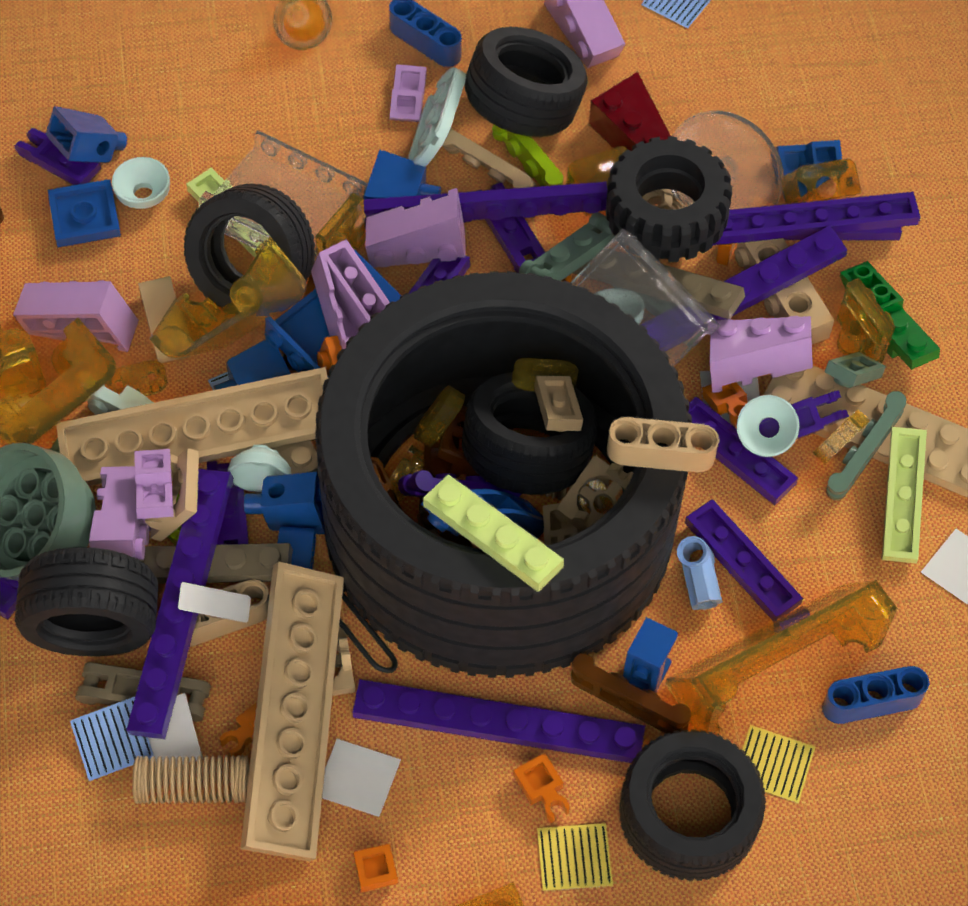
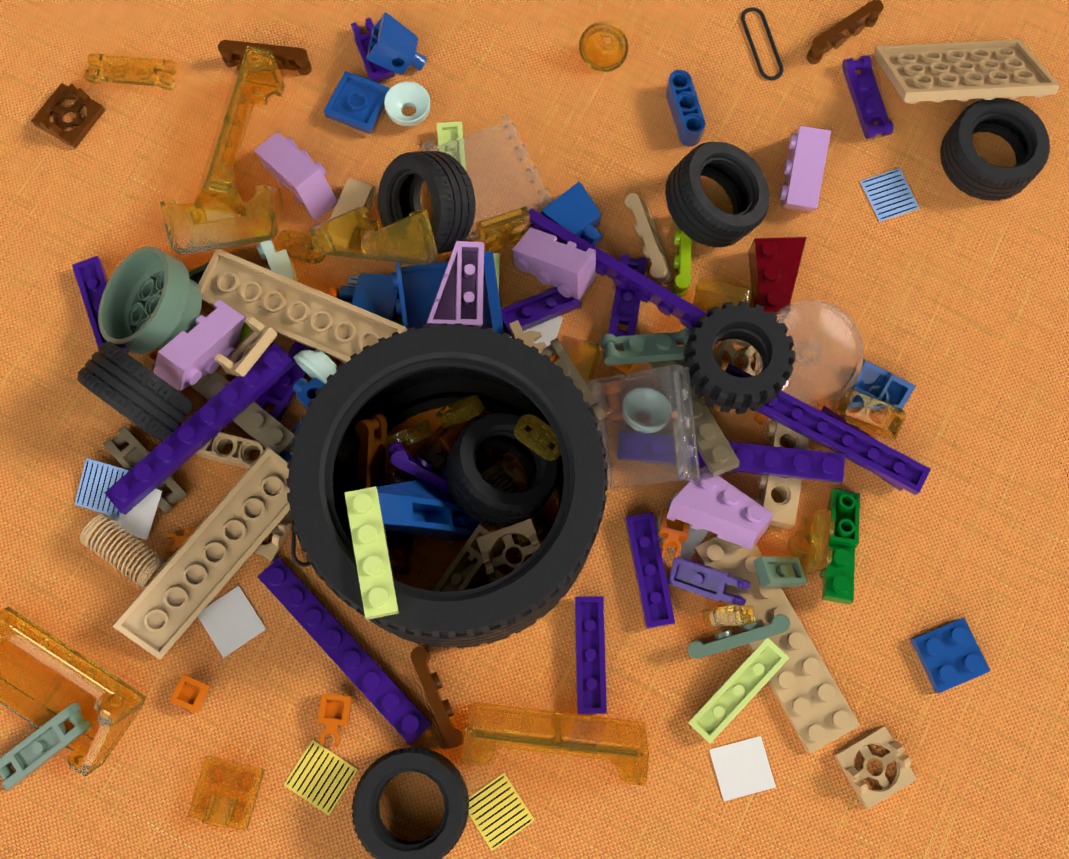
camera: 35 degrees right, 15 degrees up
(153, 484) = (232, 337): lavender slope -> none
(214, 602) = (217, 444): white sticker -> none
(328, 353) = (419, 318): orange plate -> none
(408, 93) = (638, 148): lavender slope -> none
(437, 117) = (636, 182): light aqua tile -> none
(558, 403) = (524, 469): tan plate -> none
(647, 656) = (465, 683): blue panel -> none
(679, 437) = (529, 557): tan beam -> none
(699, 575) = (549, 646): light blue piece -> none
(767, 407) = (665, 574): light aqua piece -> none
(886, 683) = (611, 829): blue beam -> none

